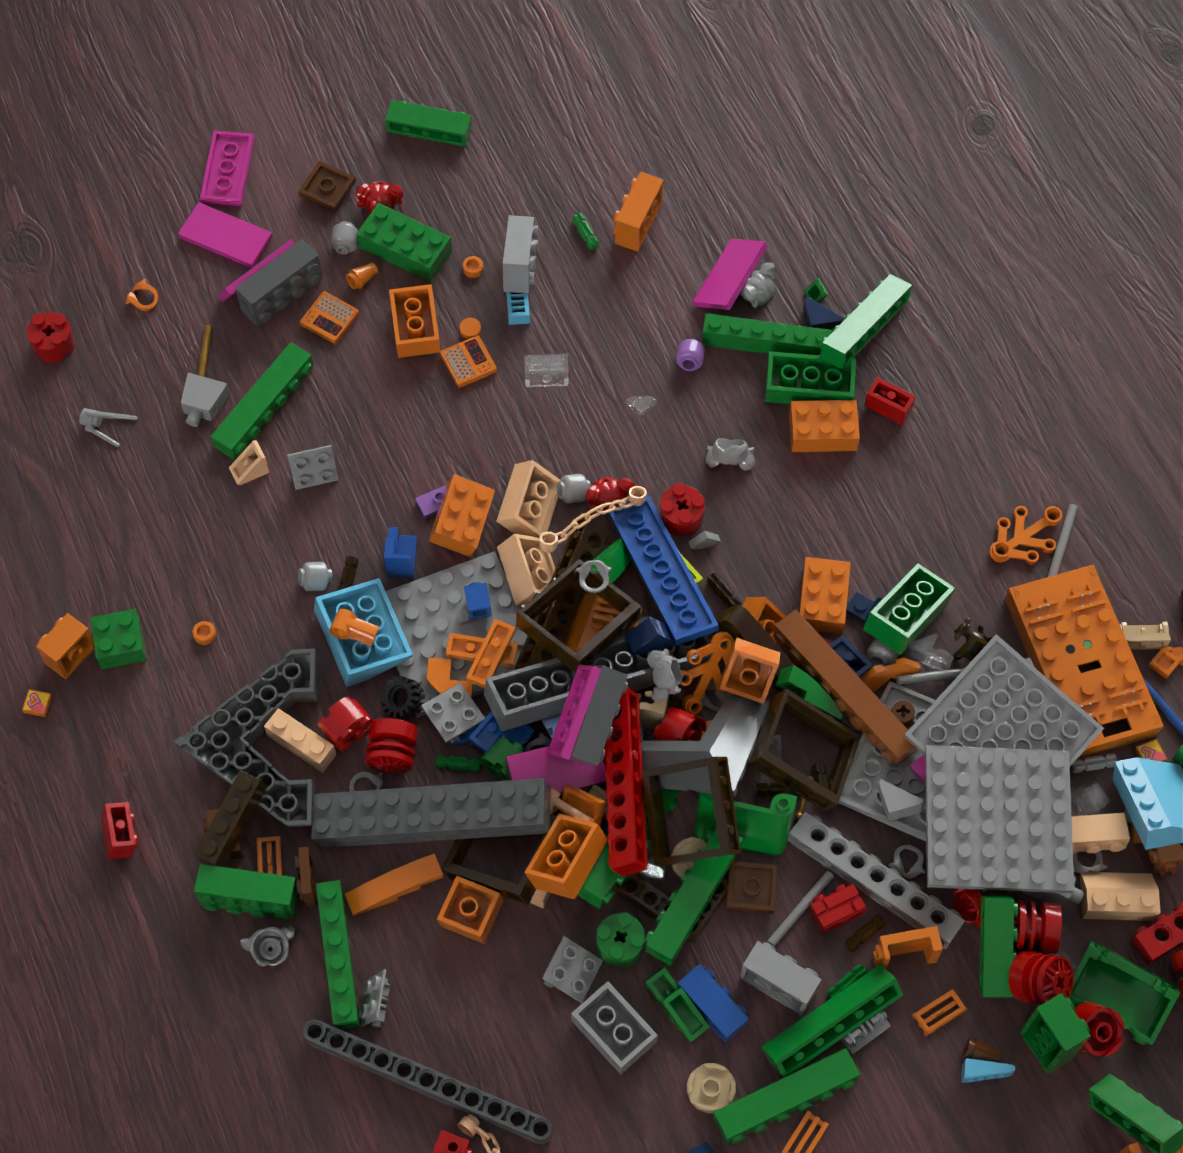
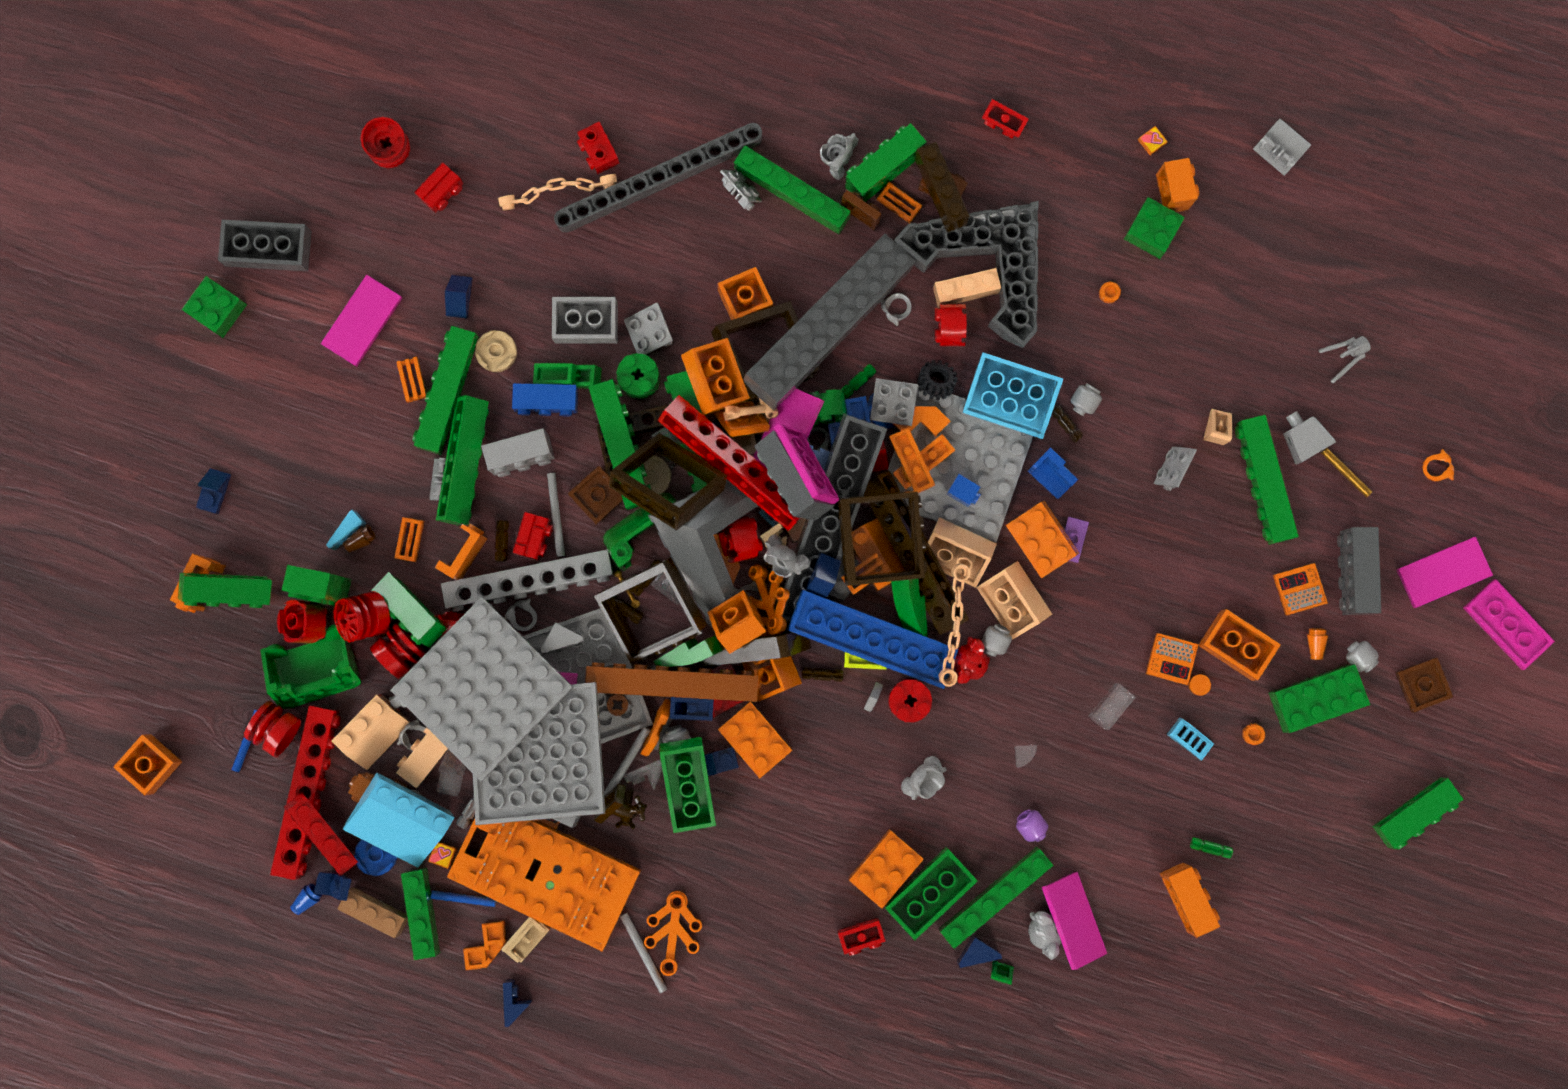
camera: 135 degrees right, 20 degrees up
(50, 336) = (1460, 359): red brick -> none
(230, 290) = (1387, 570): dark pink tile -> none
(348, 625) = (1018, 381): orange piece -> none
(379, 192) = (1380, 715): red hair -> none
(391, 745) = (906, 340): red wheel -> none
(393, 884) = (808, 265): orange slope -> none
(519, 253) = (1229, 771): light grey brick -> none
(584, 571) = (910, 570): light grey piece -> none
(847, 980) = (481, 498): green axle -> none
(865, 321) = (940, 980): brick -> none

